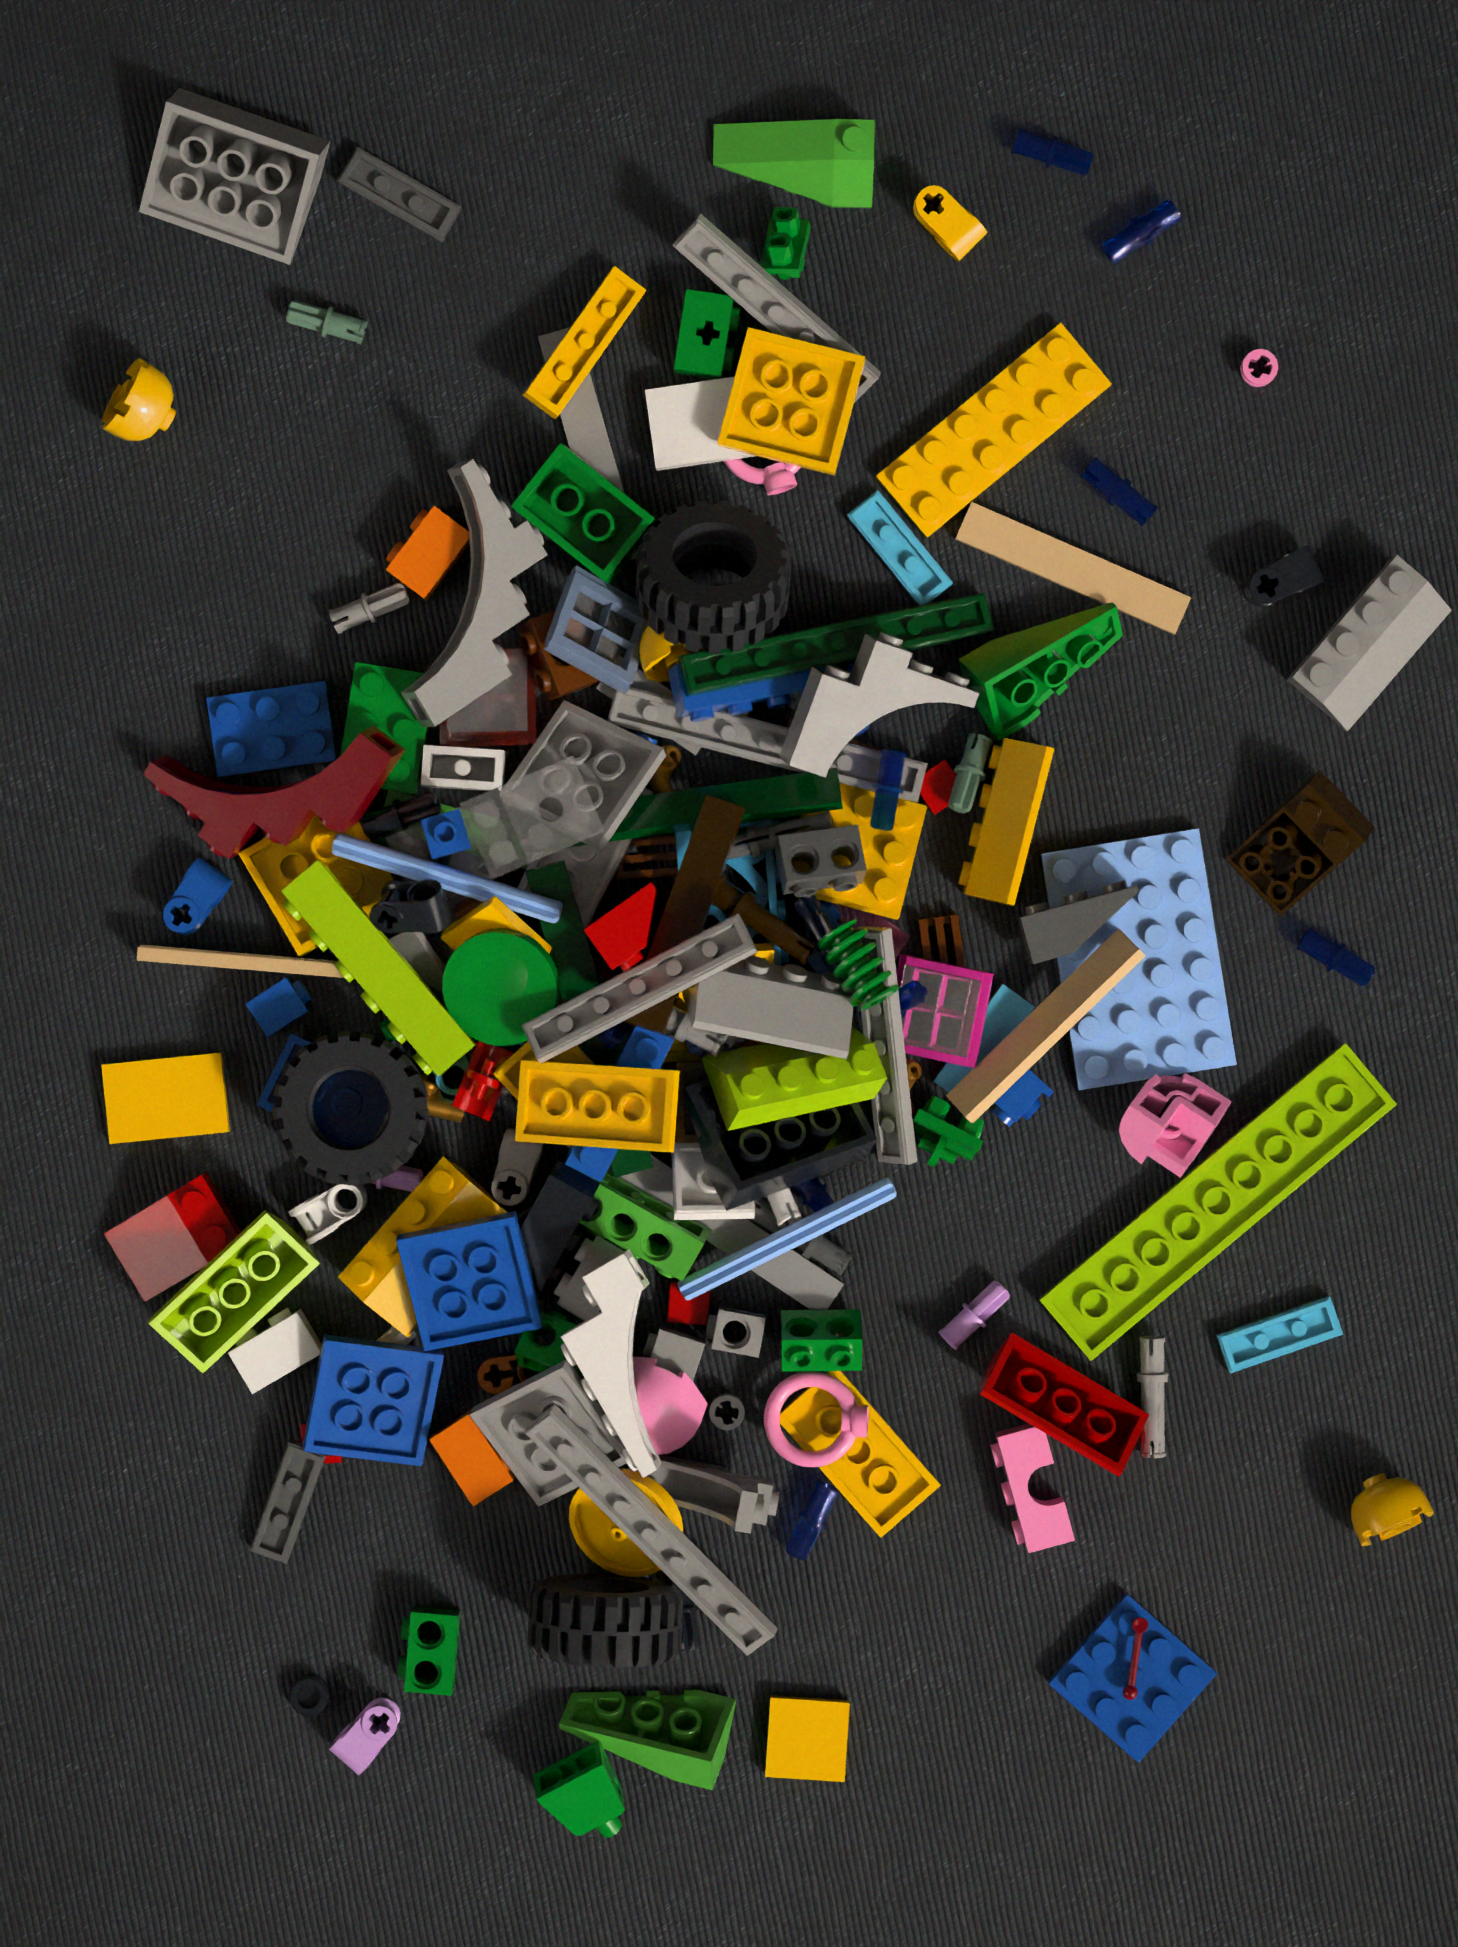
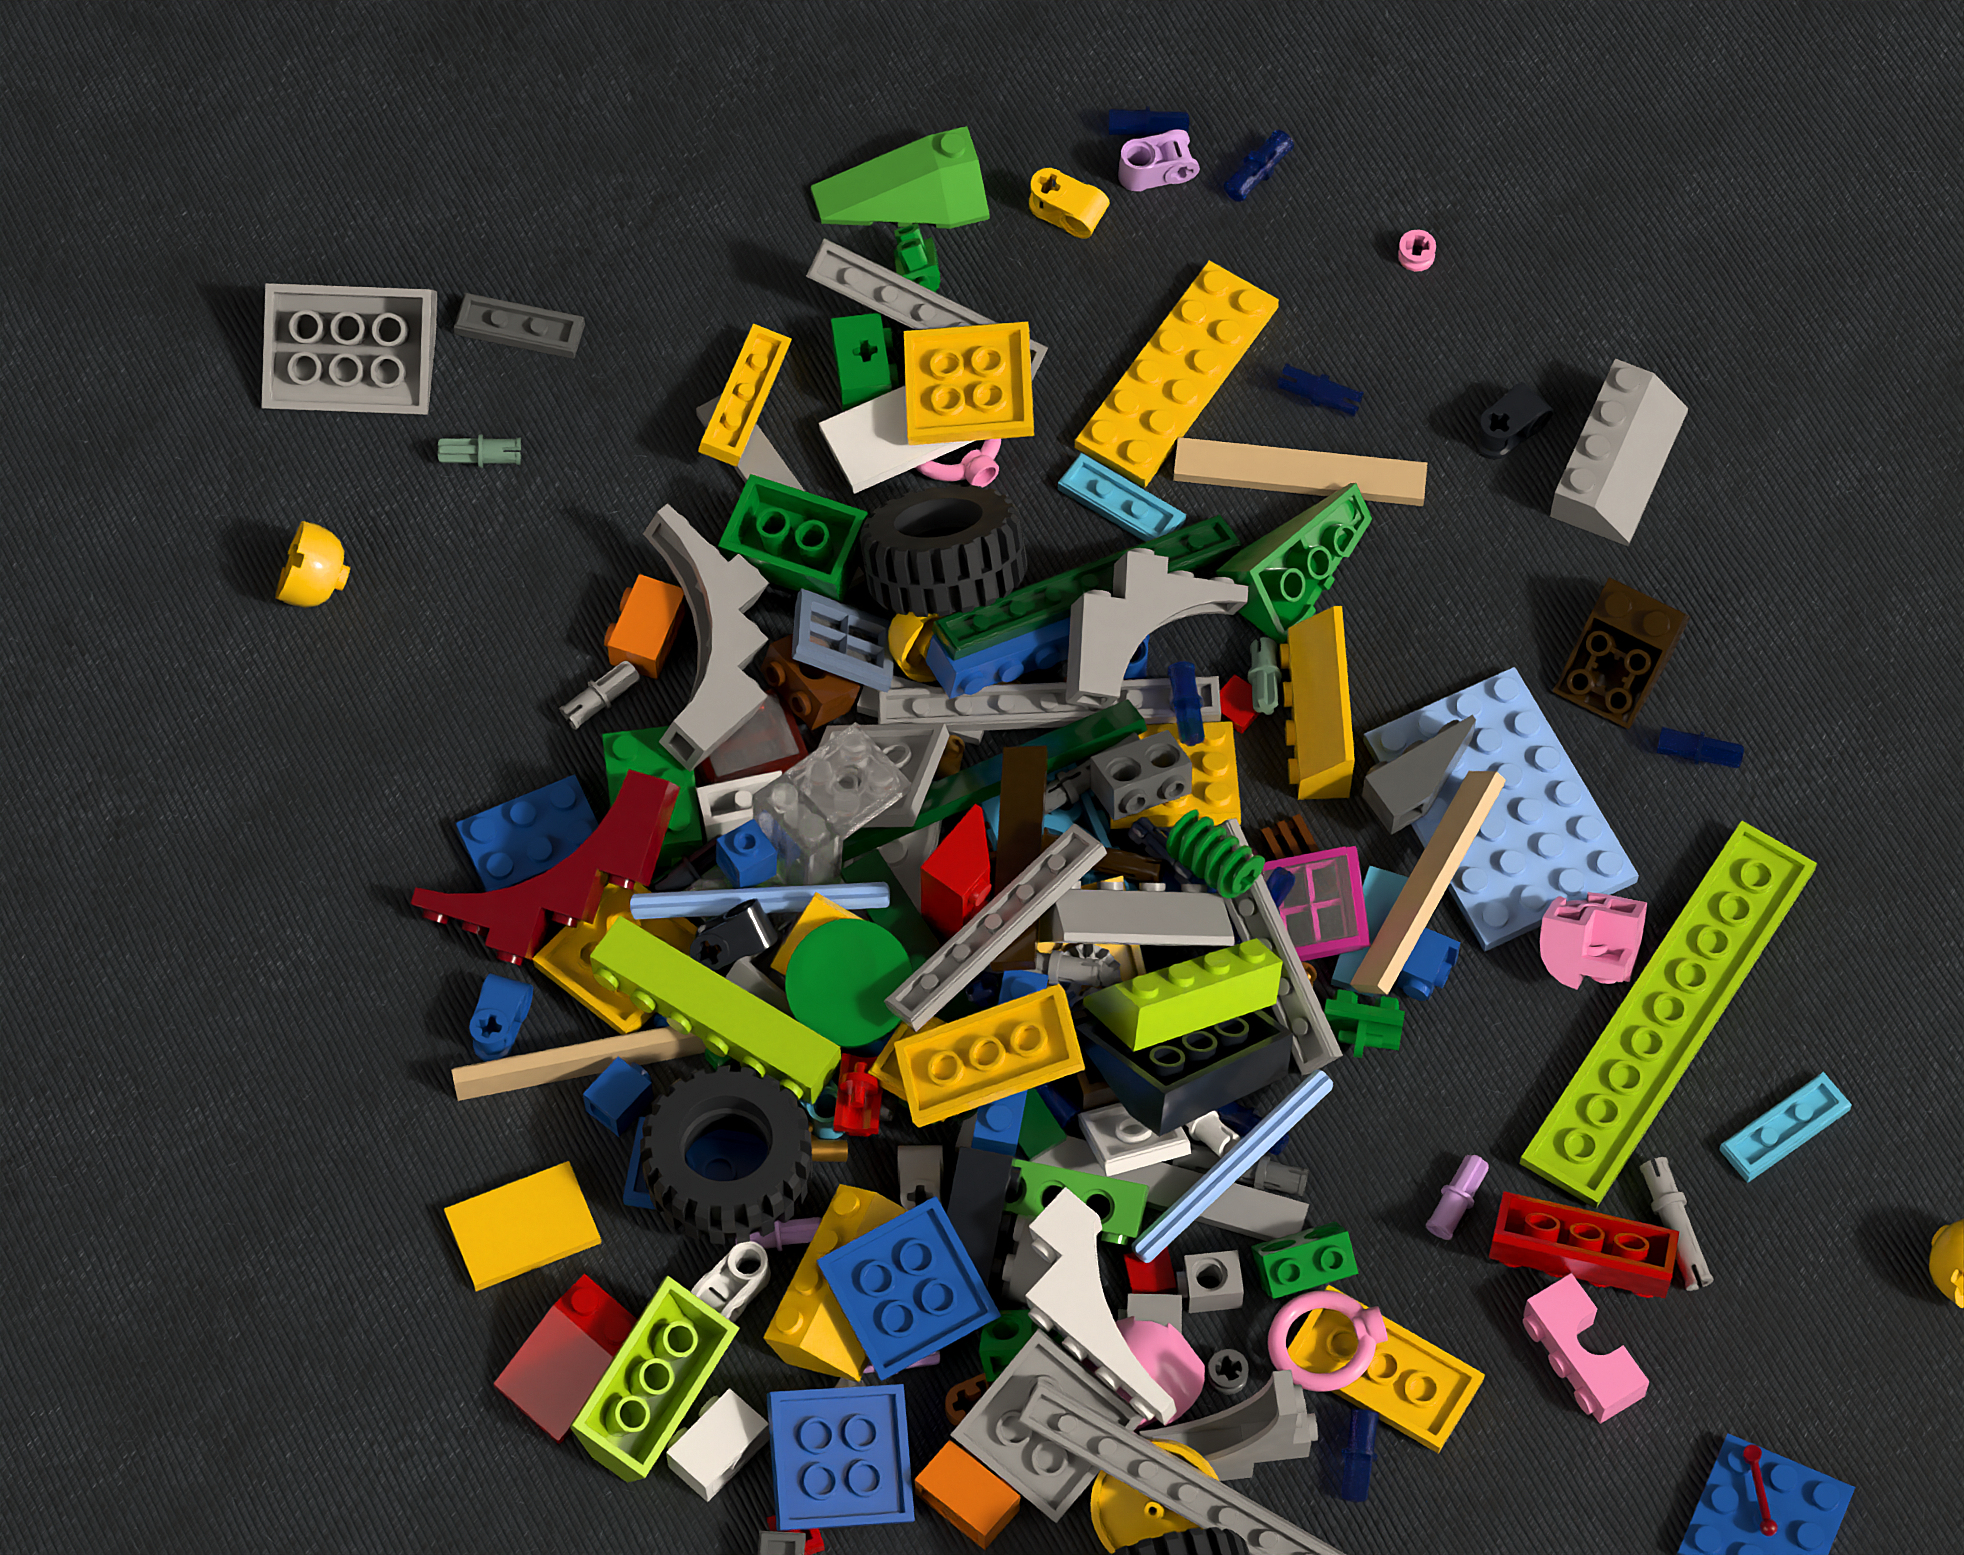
camera: 15 degrees left, 25 degrees down
(1050, 200) = (1160, 161): none -> lavender piece

